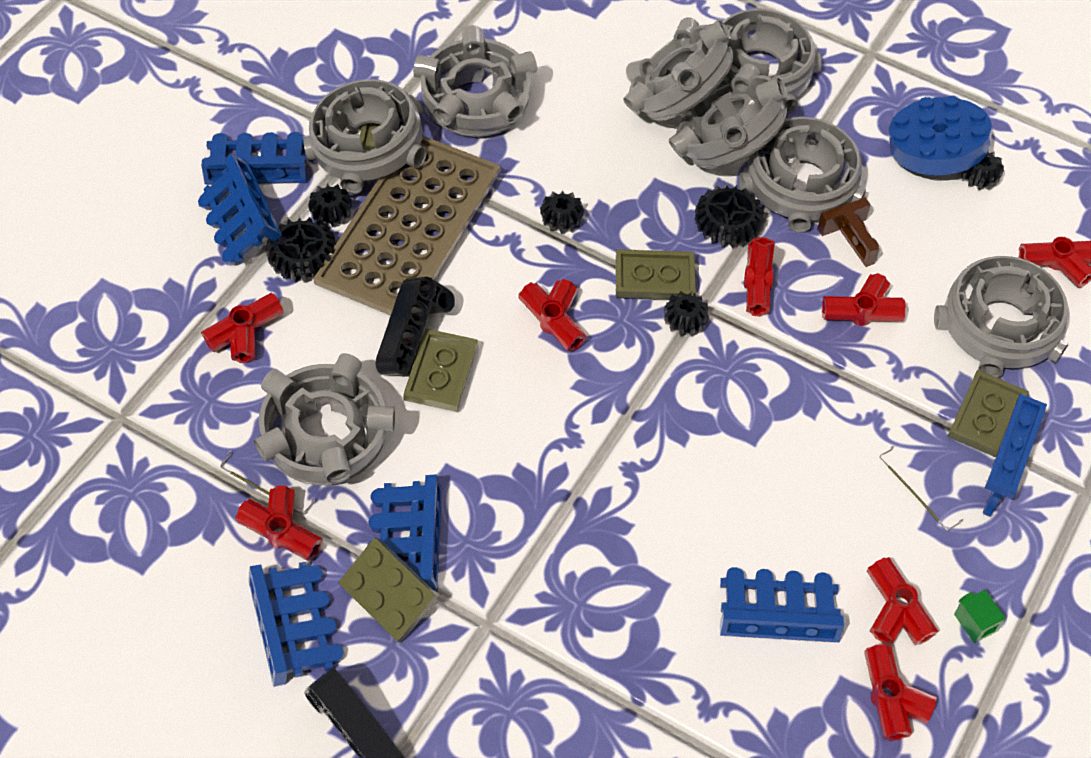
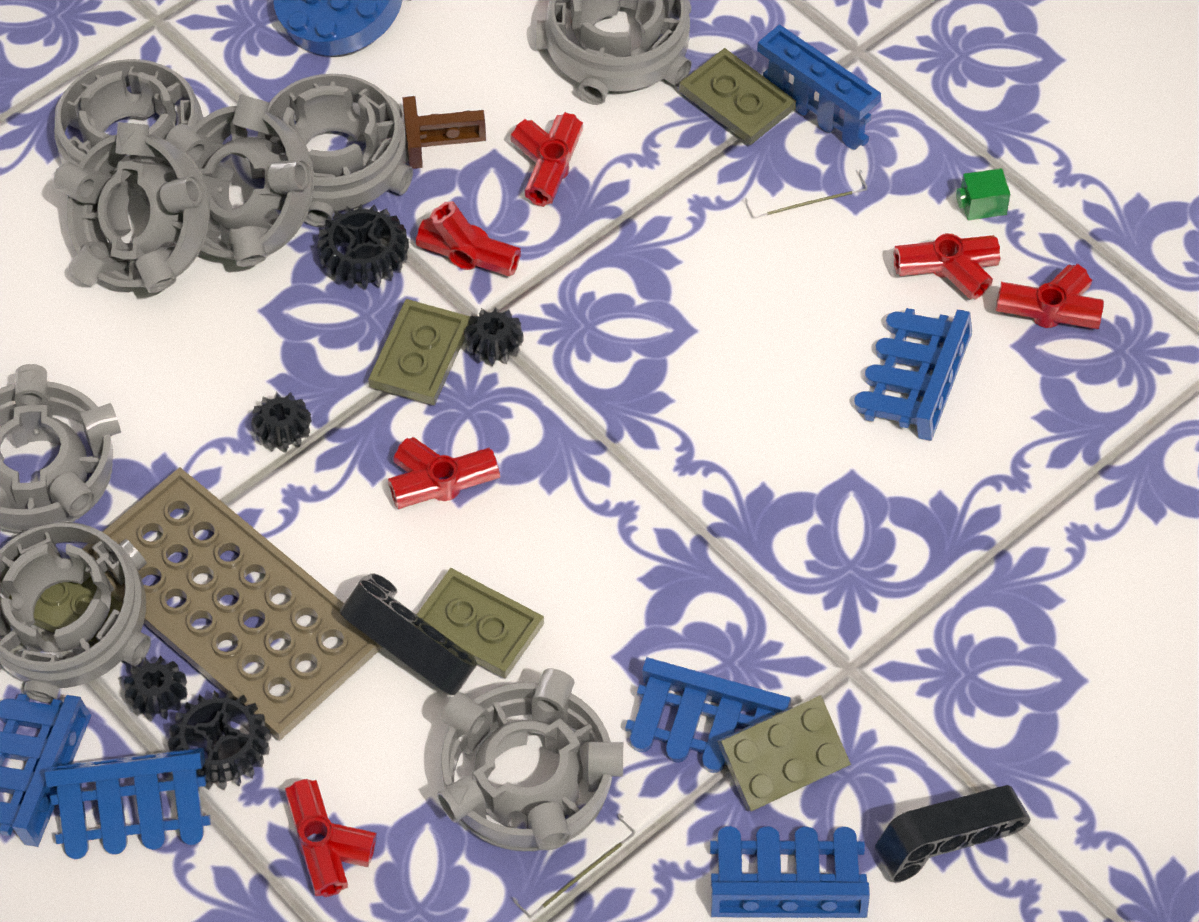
camera: 70 degrees left, 0 degrees up
(279, 515) = (632, 855): red piece -> none

